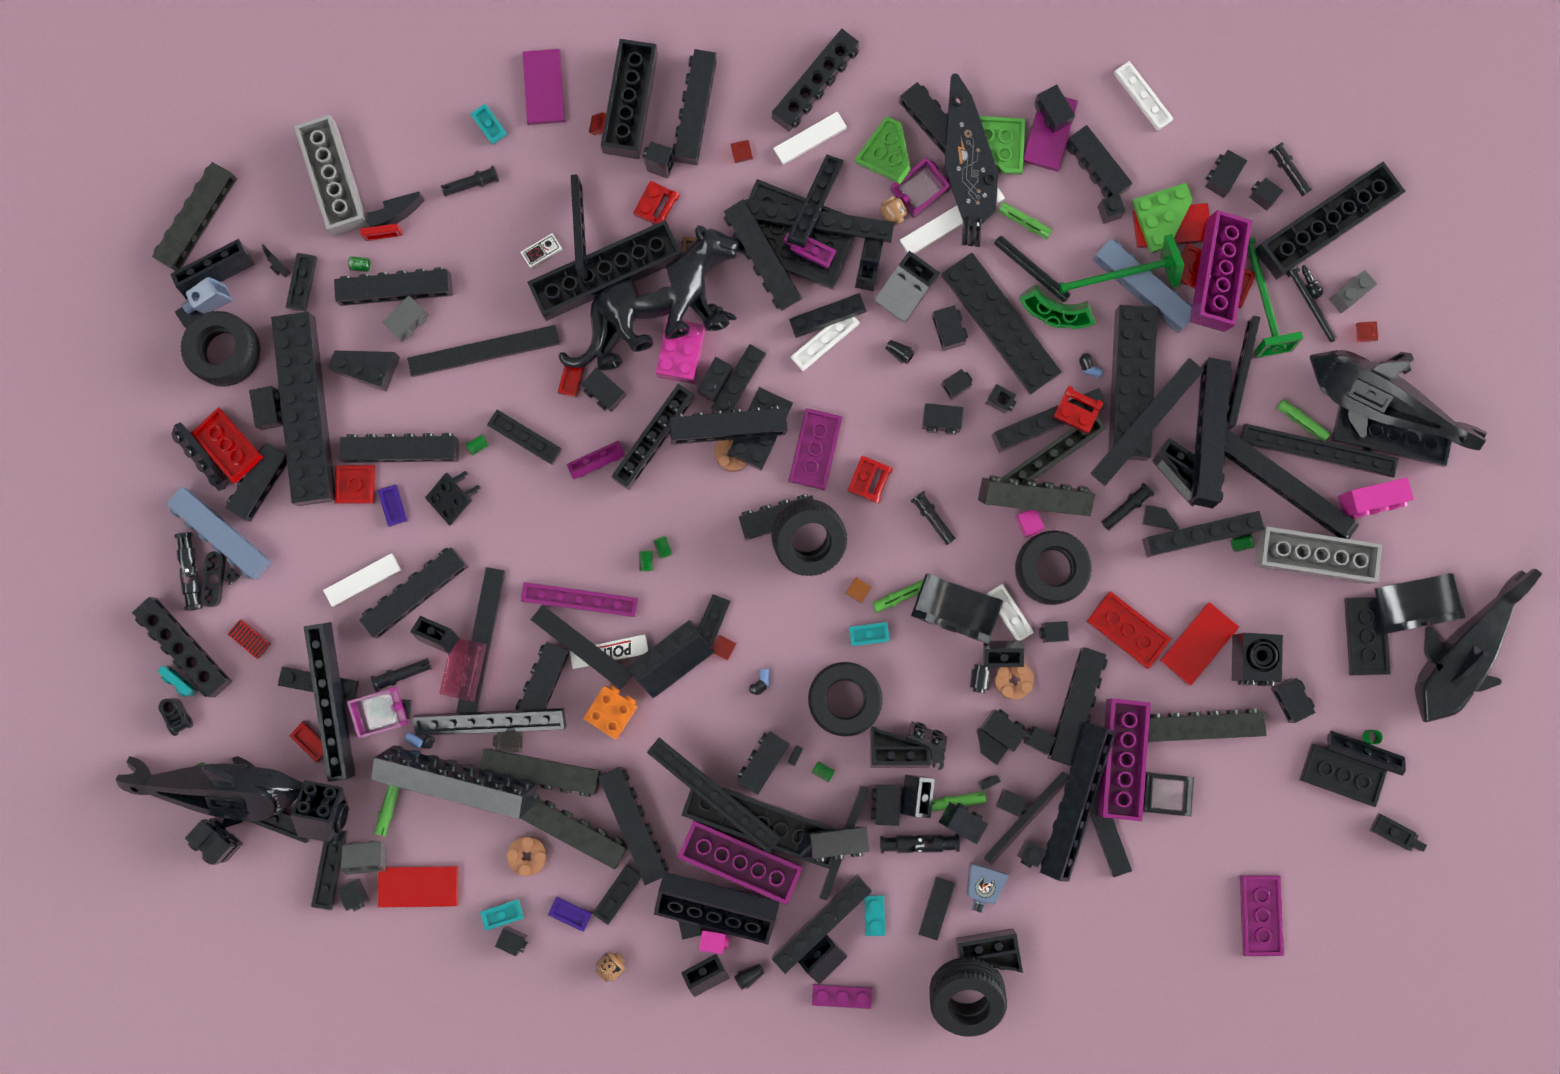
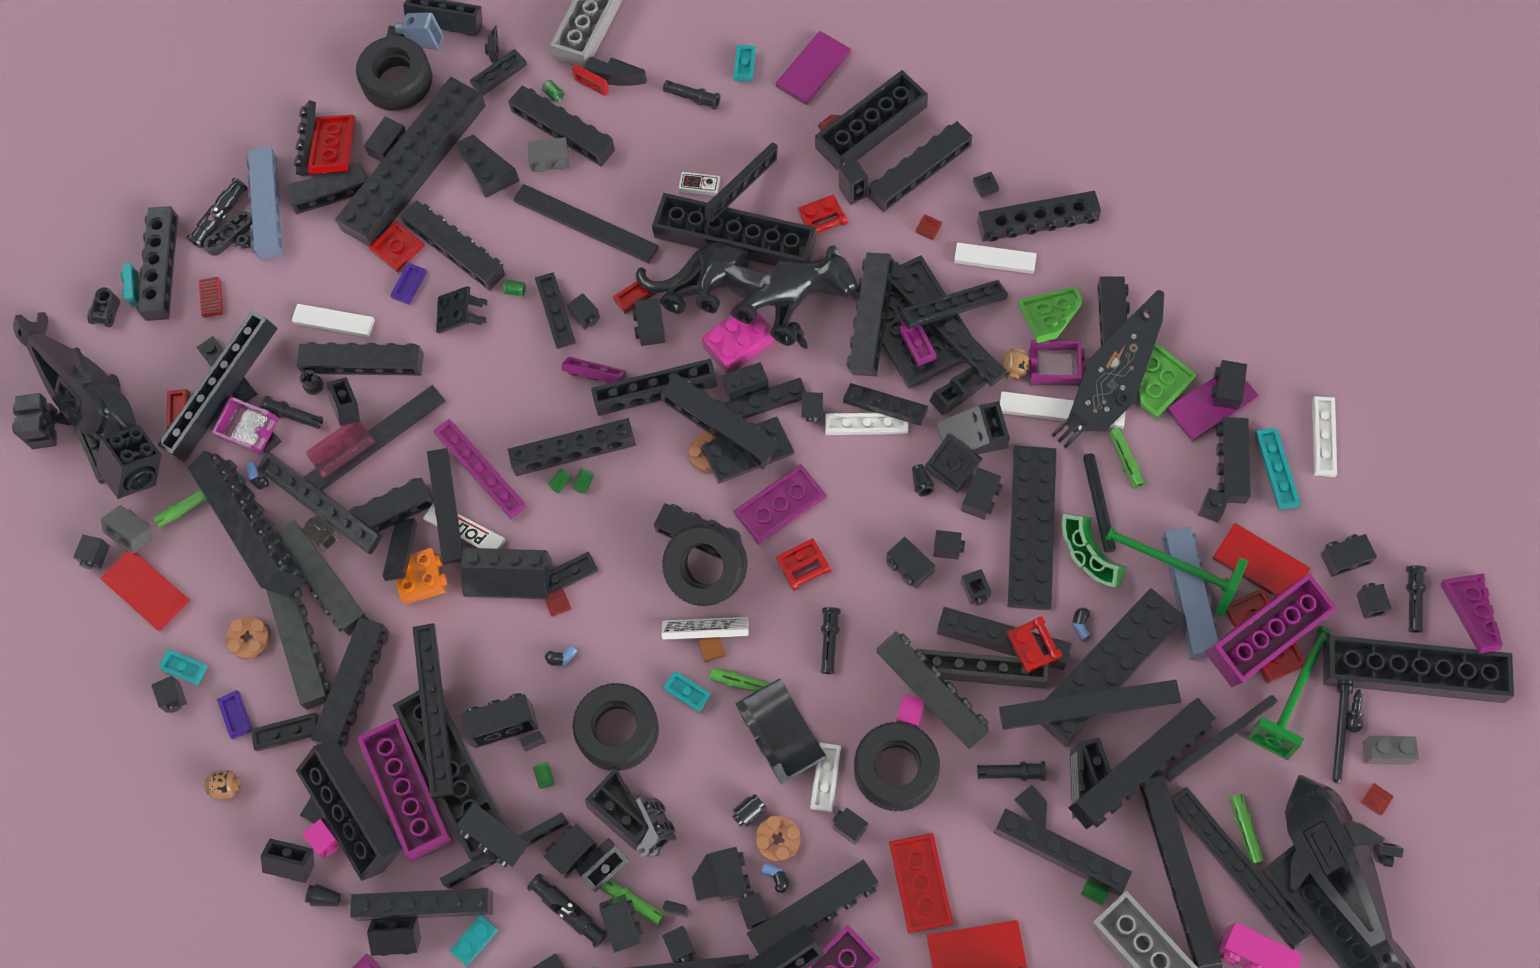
camera: 45 degrees right, 15 degrees down
(328, 873) = (90, 519): black plate -> none
(395, 634) = (308, 386): none -> black bush
(547, 421) = (584, 311): none -> black brick
(582, 706) = (400, 549): none -> black tile
(633, 529) = (571, 447): none -> black brick
(755, 84) = (986, 184): none -> black plate
(778, 358) = (812, 406): none -> black brick
(842, 580) = (705, 628): none -> white tile
(912, 321) = (953, 462): none -> black plate
(1003, 654) = (786, 804): black brick -> none
(1035, 703) = (778, 875): none -> black arm
(1131, 146) = (1277, 469): none -> teal plate
(1161, 214) = (1258, 543): bright green plate -> none
(1331, 146) = (1474, 610): none -> magenta wing

